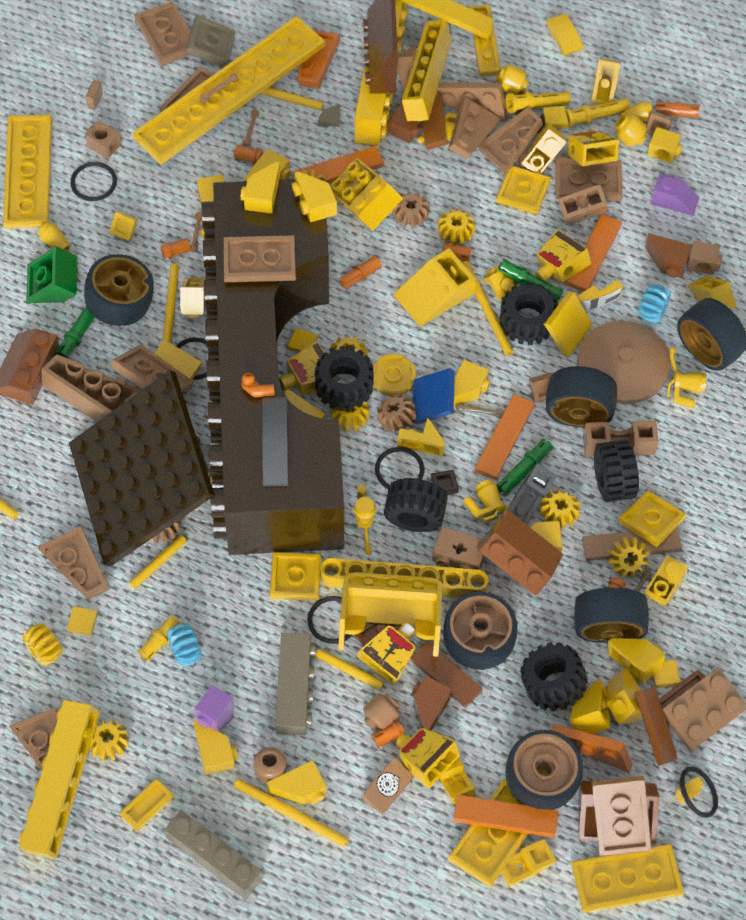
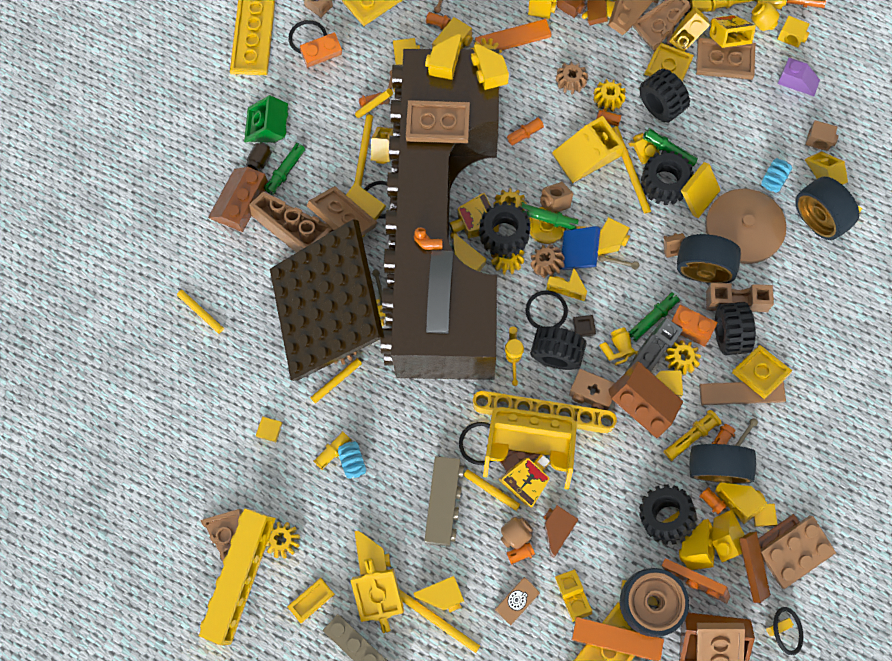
camera: 10 degrees right, 10 degrees up
(42, 644) = (233, 450): yellow gear -> none
(46, 316) = (258, 156): none -> dark brown brick
(52, 236) = (270, 85): yellow cone -> none
(76, 561) = (269, 377): medium nougat wing -> none
(111, 194) = (320, 50): none -> orange brick
(118, 289) = (320, 136): wheel -> none
(123, 225) = (329, 78): yellow plate -> none
(181, 248) = (373, 103): none -> yellow bar
(215, 709) = (372, 524): medium lavender slope -> none
(225, 789) = (377, 595): none -> yellow plate
(269, 764) = (415, 568): medium nougat head -> none
(295, 576) = (451, 402): yellow tile -> none
(301, 339) = (471, 189): yellow tile -> none
(365, 194) = (533, 61): yellow slope -> none
(394, 363) = (556, 219): none -> green pin
(402, 342) = (556, 197): none -> medium nougat brick
(427, 755) = (552, 577): yellow torso -> none
(447, 673) = (574, 502): dark orange tile -> none
(475, 647) = (601, 481): wheel -> none
(504, 437) = (638, 287): orange tile -> none
(519, 222) = (664, 95): none -> black tyre
(561, 258) = (698, 129): yellow torso -> none
(571, 472) = (694, 325): none -> orange brick
(583, 204) = (720, 82): medium nougat brick -> none
(584, 583) = (699, 429): none -> yellow pin
(595, 298) = (725, 167): slope -> none
(598, 247) = (726, 125): orange tile -> none
(606, 662) = (713, 500): none -> orange pin
(635, 561) = (740, 407): yellow gear -> none
(658, 120) = (789, 9): medium nougat tile -> none
(666, 581) = (771, 432): yellow slope -> none
(668, 254) = (791, 131): dark orange slope -> none
(688, 381) = (804, 248): yellow piece -> none

